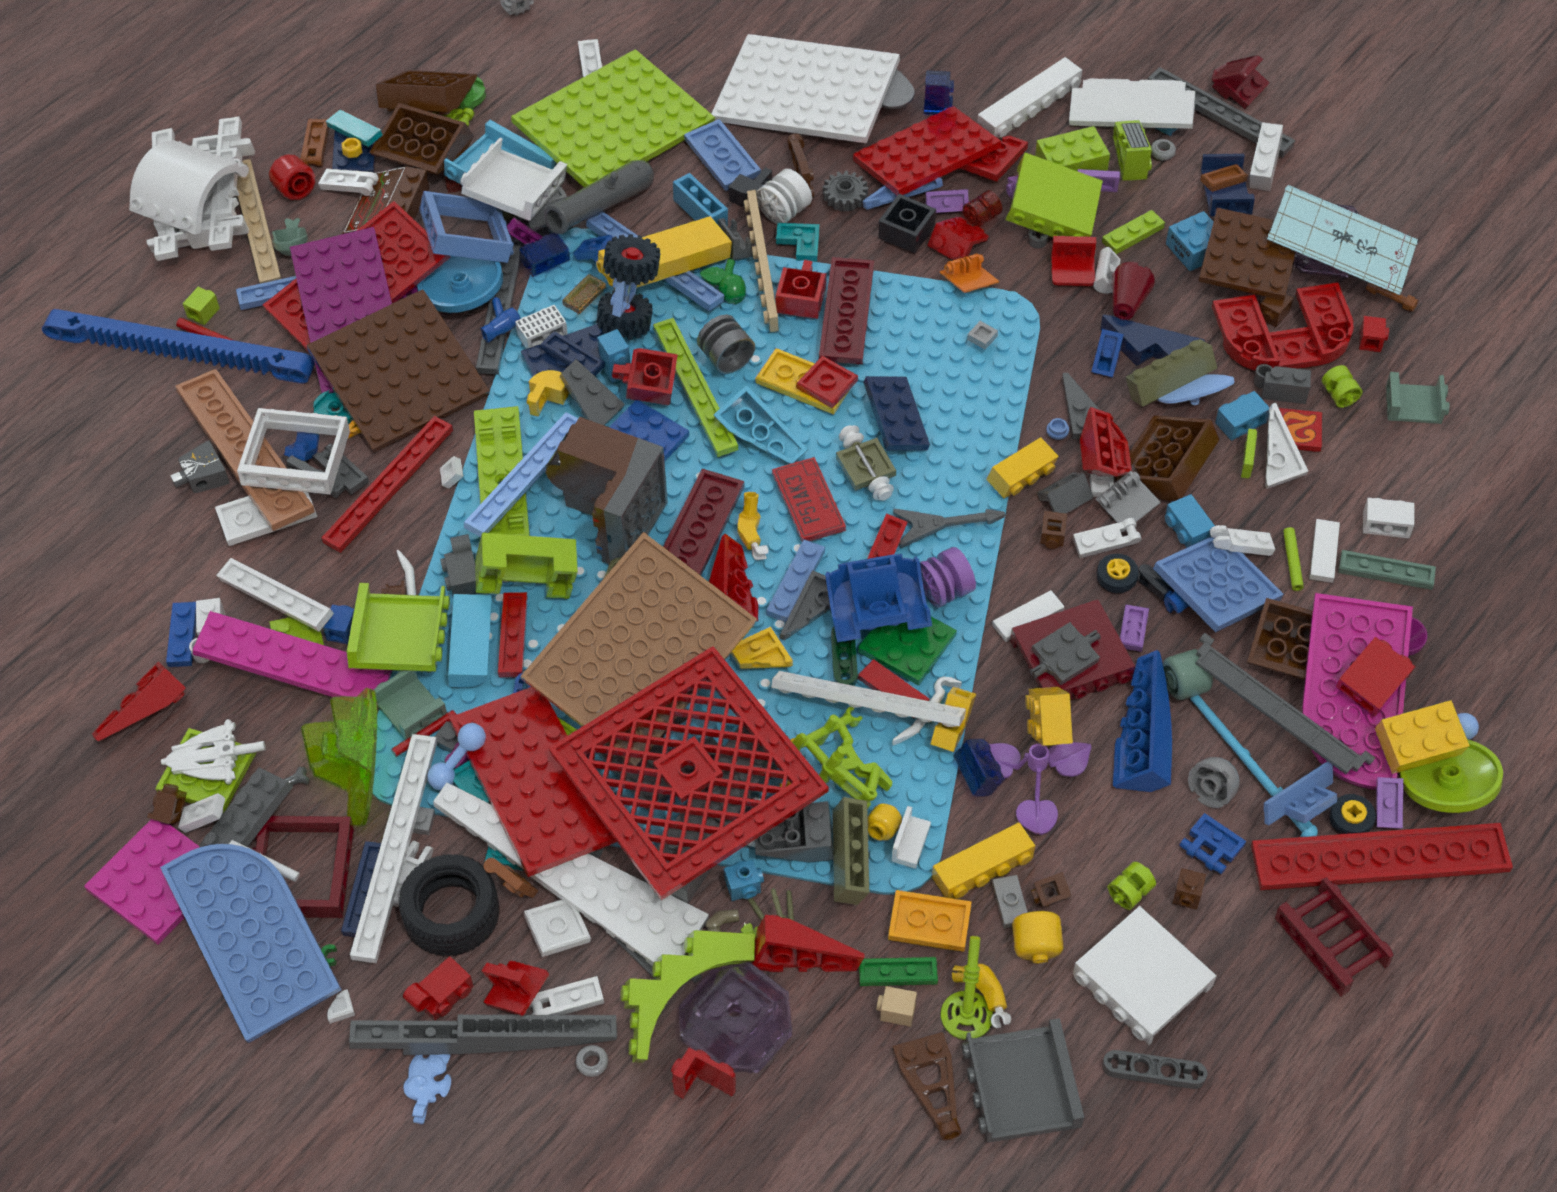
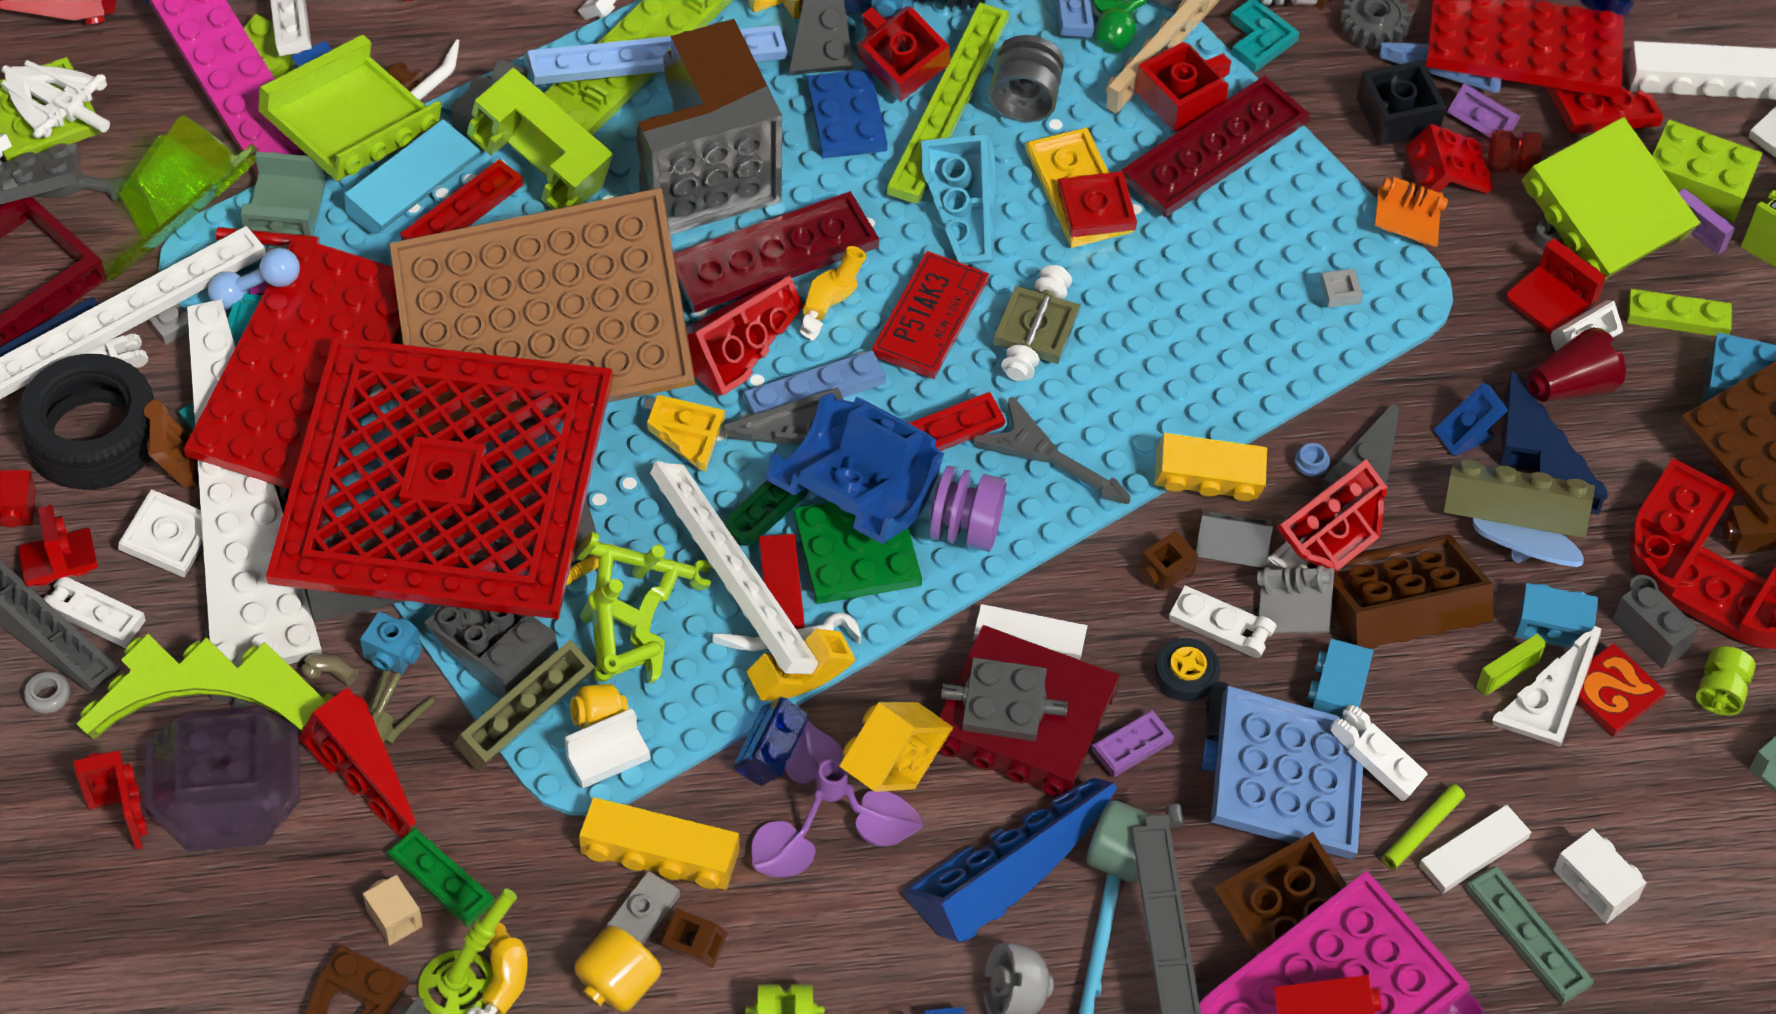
camera: 40 degrees right, 0 degrees up
(896, 413) = (1135, 296): dark blue plate -> none
(929, 920) = (532, 854): light orange plate -> none

